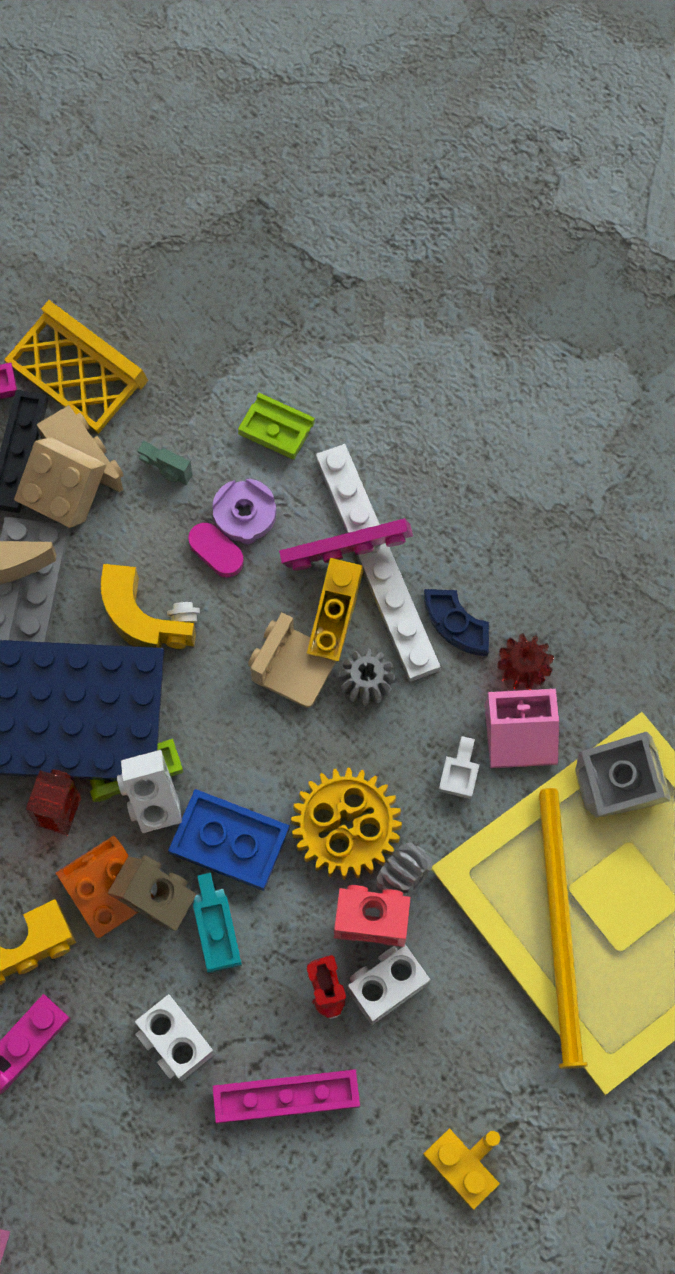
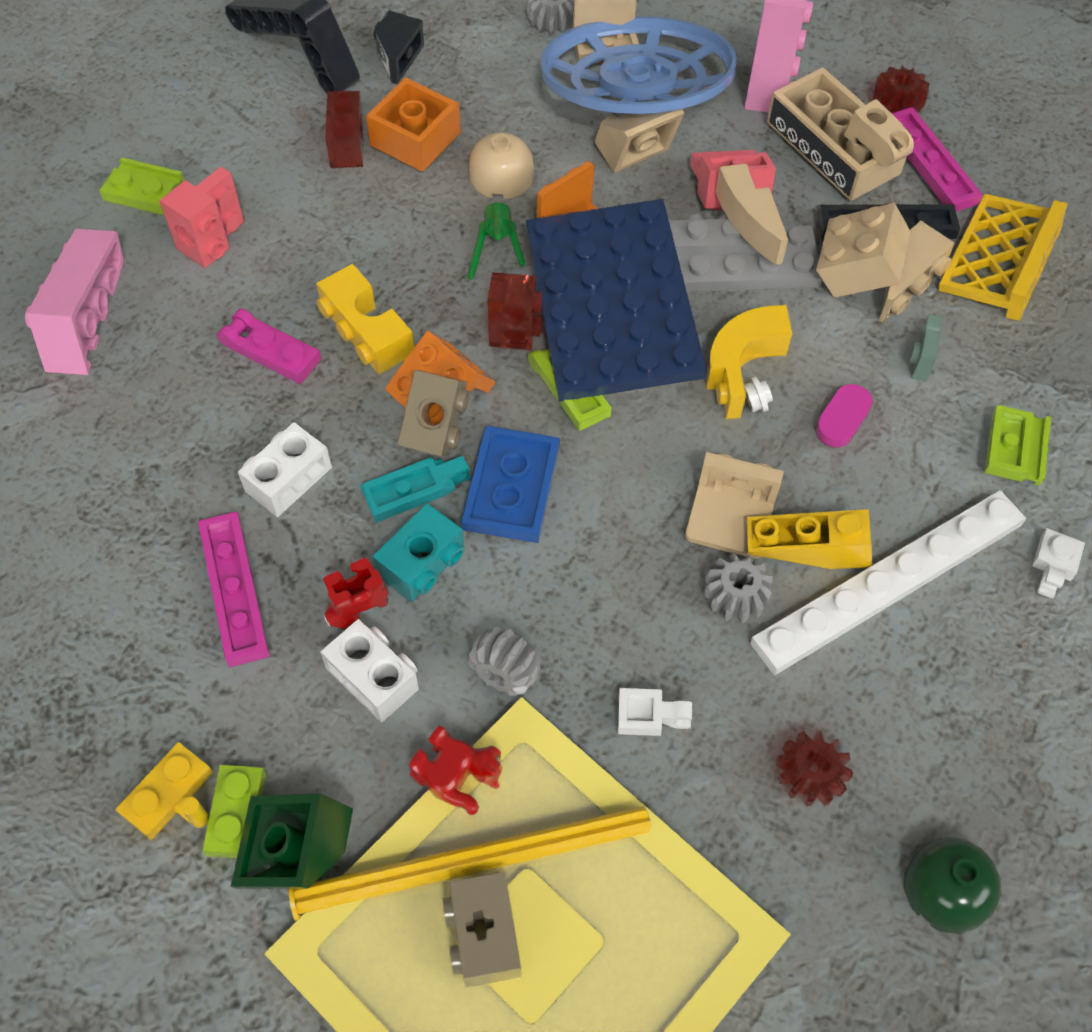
camera: 80 degrees right, 10 degrees down
(150, 791) = (543, 389): white brick -> none
(244, 528) = (896, 449): lavender plate -> none
(291, 948) = (424, 532): none -> teal brick
(331, 797) = (583, 577): yellow gear -> none
(354, 925) = (437, 625): coral brick -> none
(358, 541) = (901, 538): dark pink plate -> none
(384, 433) = (1059, 560): none -> white plate
(455, 623) = (840, 681): dark blue tile -> none
(487, 1111) = (230, 808): none -> lime plate
(490, 931) = (452, 766): none -> red animal
(522, 728) = (722, 774): bright pink slope -> none
(528, 1065) = (290, 841): none -> dark green slope
(621, 593) = (952, 885): none -> dark green cylinder
(621, 776) = (690, 914): light grey slope -> none
(633, 914) = (488, 959): none -> dark tan brick

